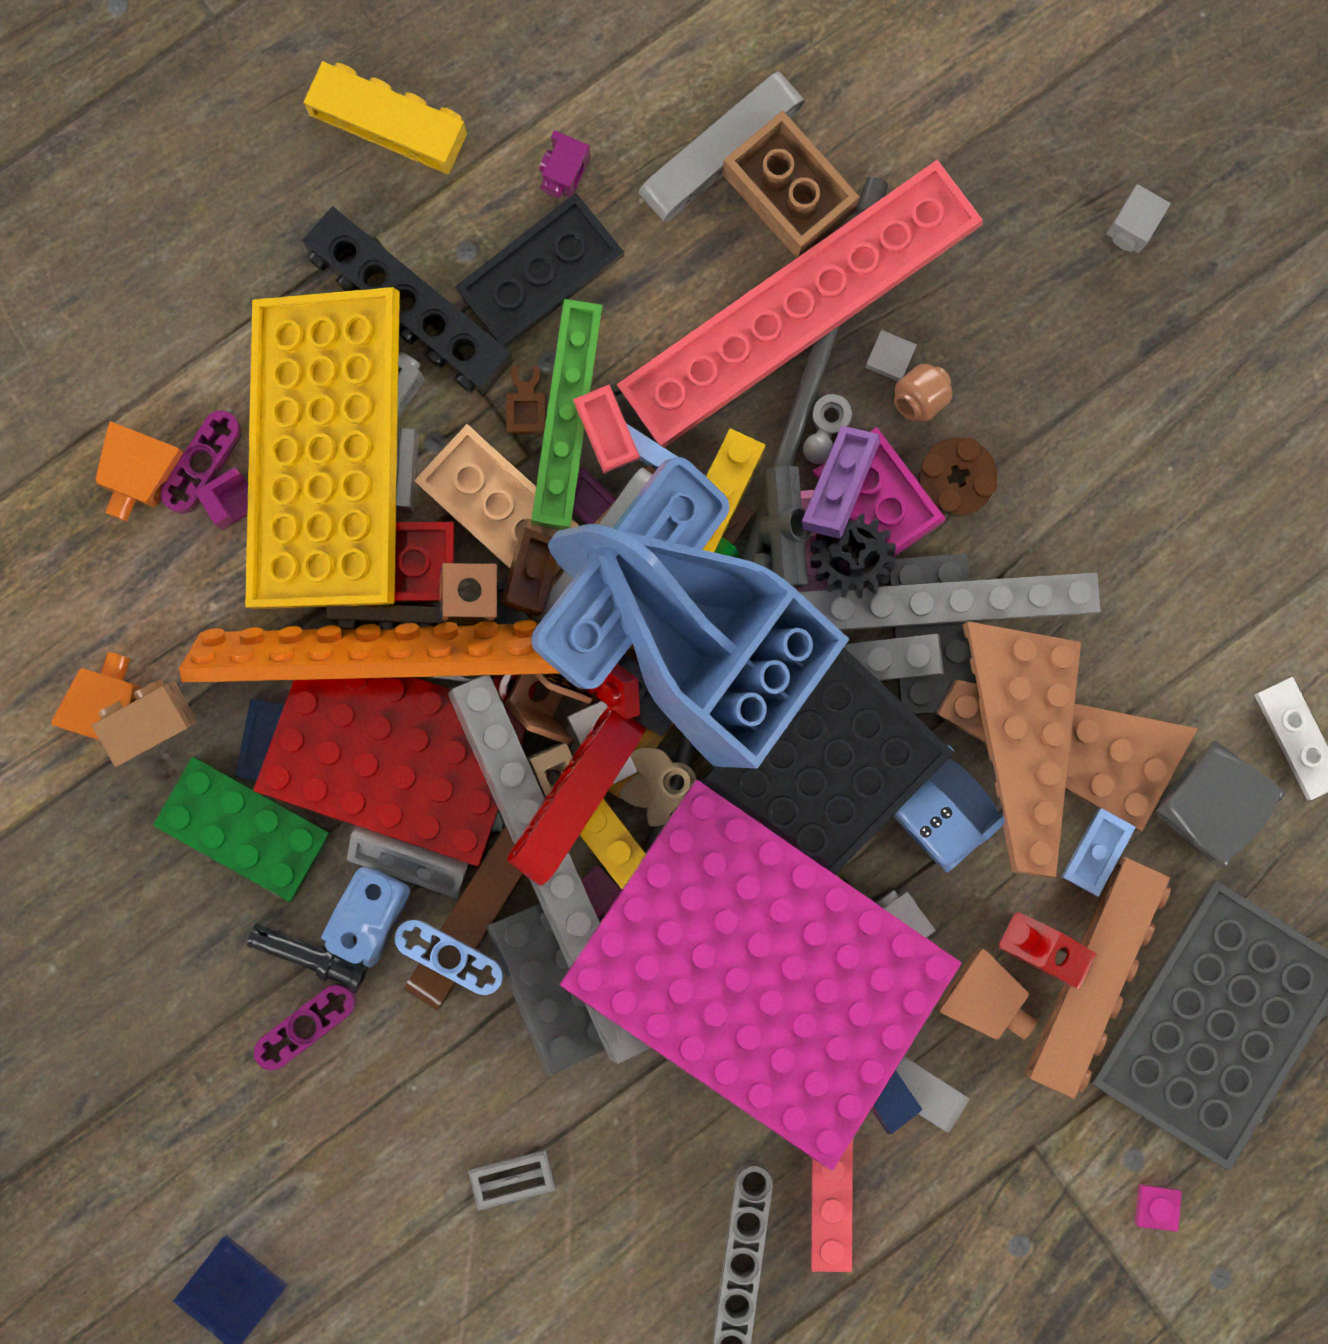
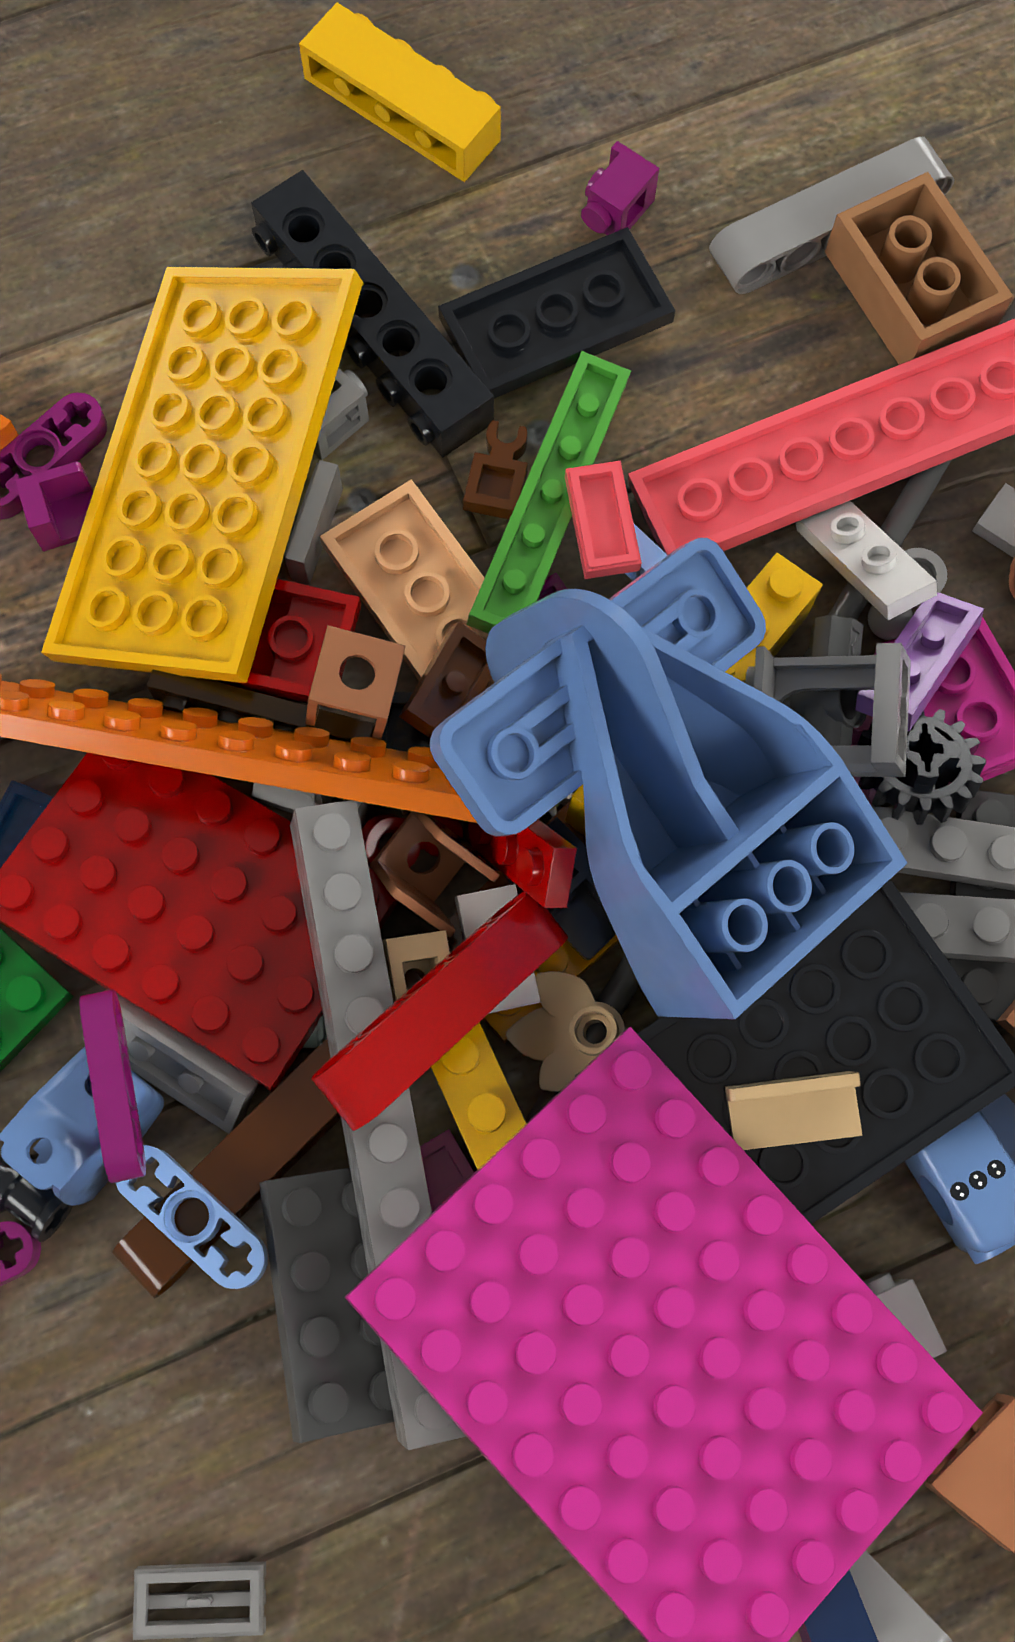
camera: 10 degrees right, 10 degrees down
(384, 891) = (112, 1086): none -> magenta beam
(794, 414) = (868, 559): none -> white plate
(810, 807) = (794, 1110): none -> tan panel
(816, 508) = (884, 673): none -> light grey panel

